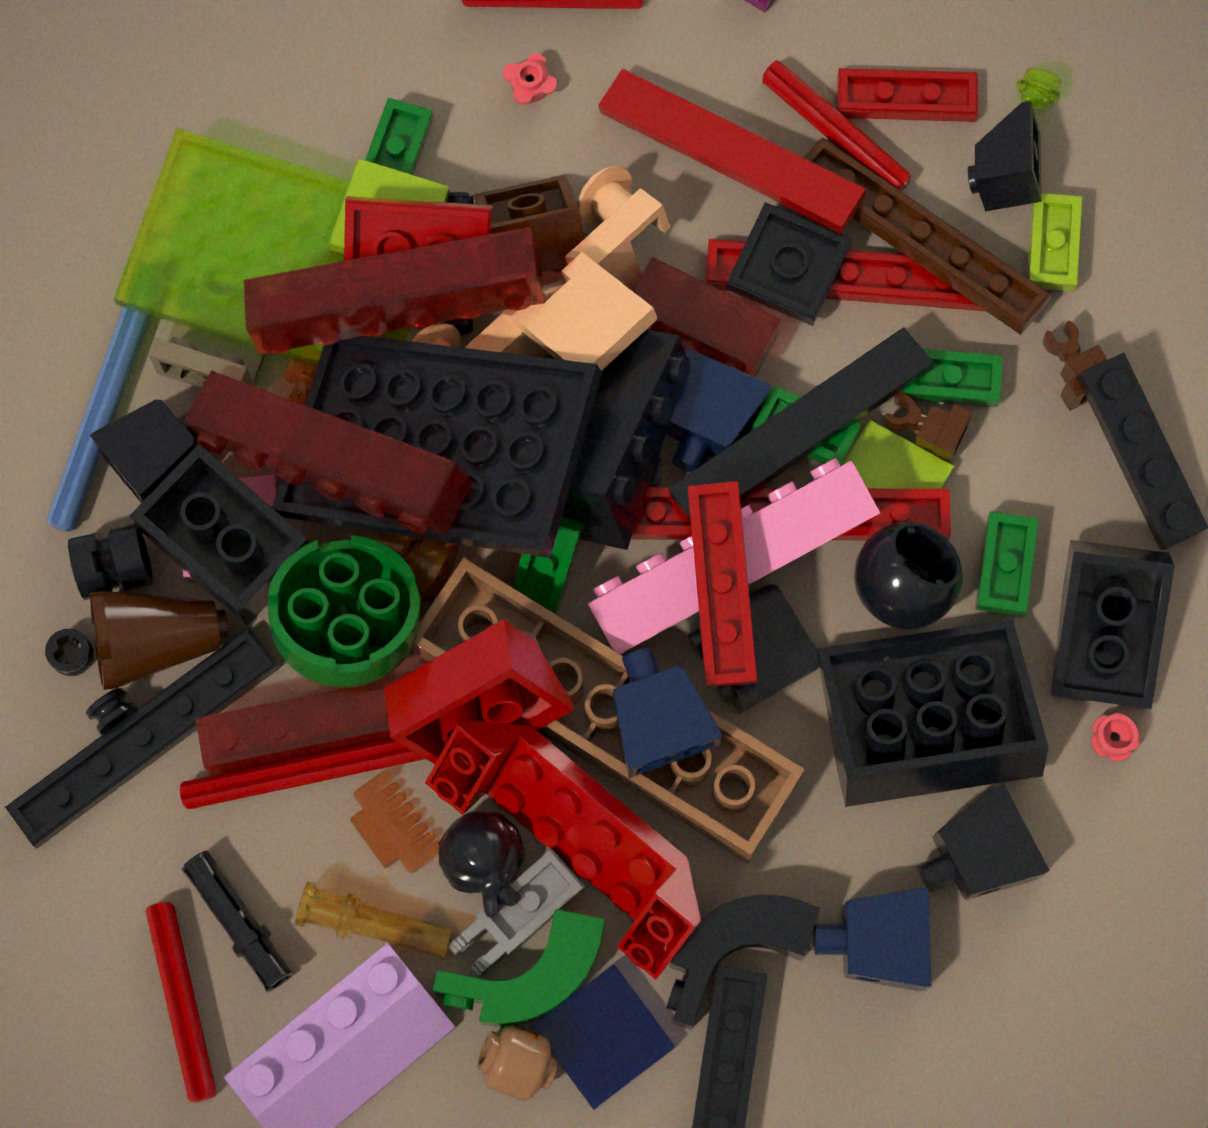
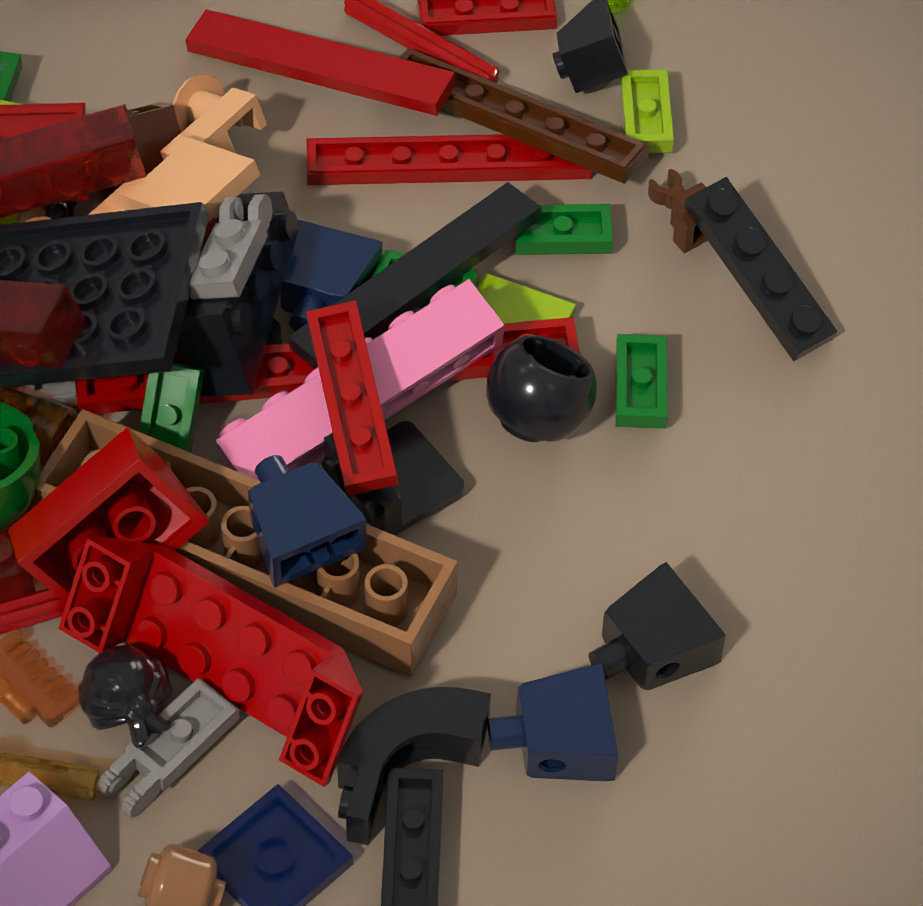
camera: 10 degrees left, 20 degrees down
(533, 91) = (116, 27): coral plate -> none
(550, 983) = (198, 811): green arch -> none
(621, 413) = (231, 248): none -> light grey hinge
(707, 318) = (321, 194): clear red brick -> none
(789, 264) = (388, 148): black tile -> none
(931, 713) = (583, 515): black slope -> none
(938, 430) = (555, 273): reddish brown piece -> none
(1112, 623) = (754, 419): black slope -> none
(1128, 736) = (775, 510): coral plate -> none

